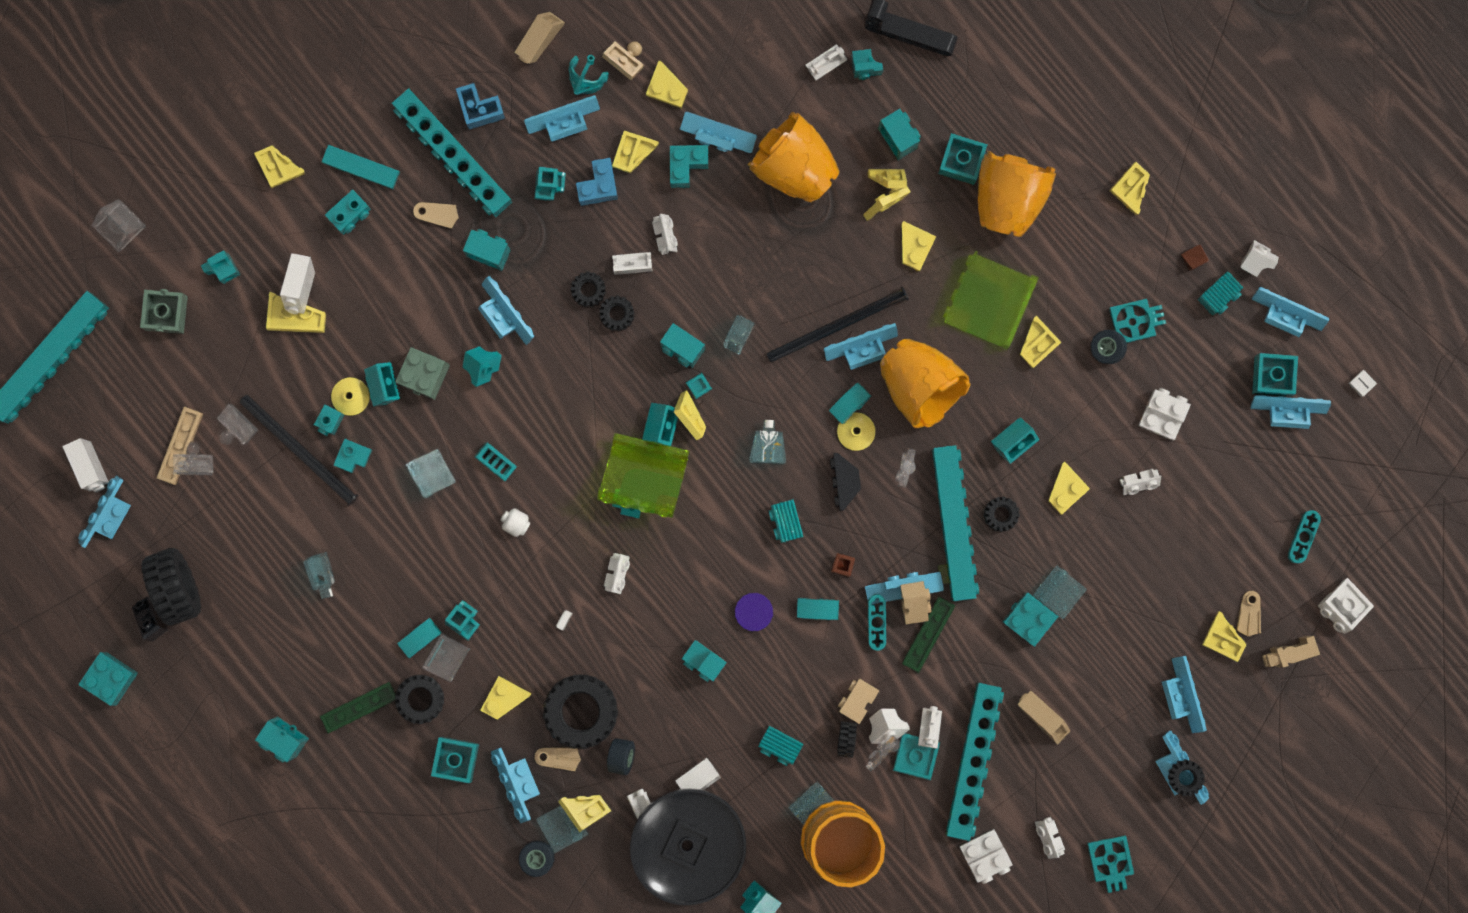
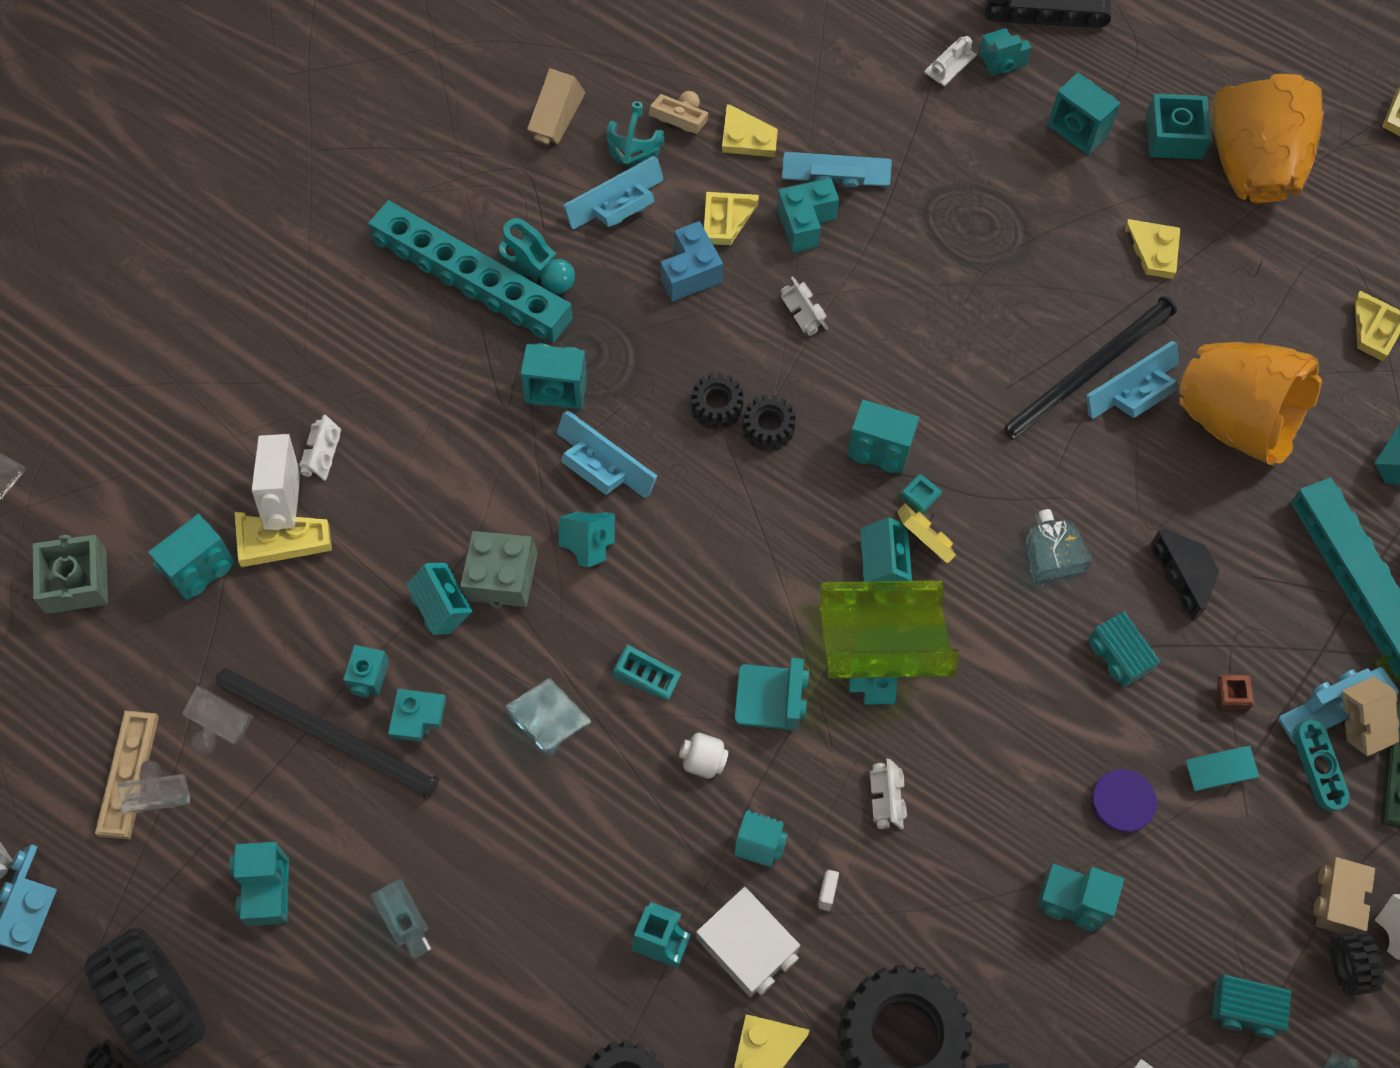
camera: 15 degrees left, 20 degrees down
(222, 266) = (151, 492): teal brick -> none
(238, 321) = (192, 557): none -> teal brick
(246, 535) = (264, 883): none -> teal brick
(277, 167) = (215, 344): light yellow wing -> none
(334, 252) = (323, 439): none -> white hinge
(348, 212) = (333, 378): teal brick -> none
(354, 405) = (400, 644): light yellow dish -> none
(360, 167) = (339, 319): teal tile -> none
(419, 638) = (594, 984): teal slope -> none
(438, 214) = (467, 354): tan piece -> none
(446, 657) = (648, 1005): clear slope -> none
(478, 112) = (492, 207): dark azure brick -> none
(506, 170) = (535, 258): none -> teal piece
(510, 638) = (748, 943): none -> white brick
(532, 582) = (760, 839): none -> teal brick
(548, 182) = (619, 276): teal brick -> none
(565, 495) = (771, 696): none -> teal bracket
(632, 263) = (771, 354): white hinge -> none
(739, 334) = (957, 398): clear light blue torso -> none
(795, 160) = (961, 163): light orange piece -> none
(849, 403) = (1150, 463): teal slope -> none
(856, 441) = (1166, 511): light yellow dish -> none
(884, 202) = (1096, 198): light yellow wing -> none
(889, 178) = (1094, 168): light yellow wing -> none
(907, 468) = (1270, 521): clear plate -> none
(990, 300) = (1289, 291): clear neon green panel -> none

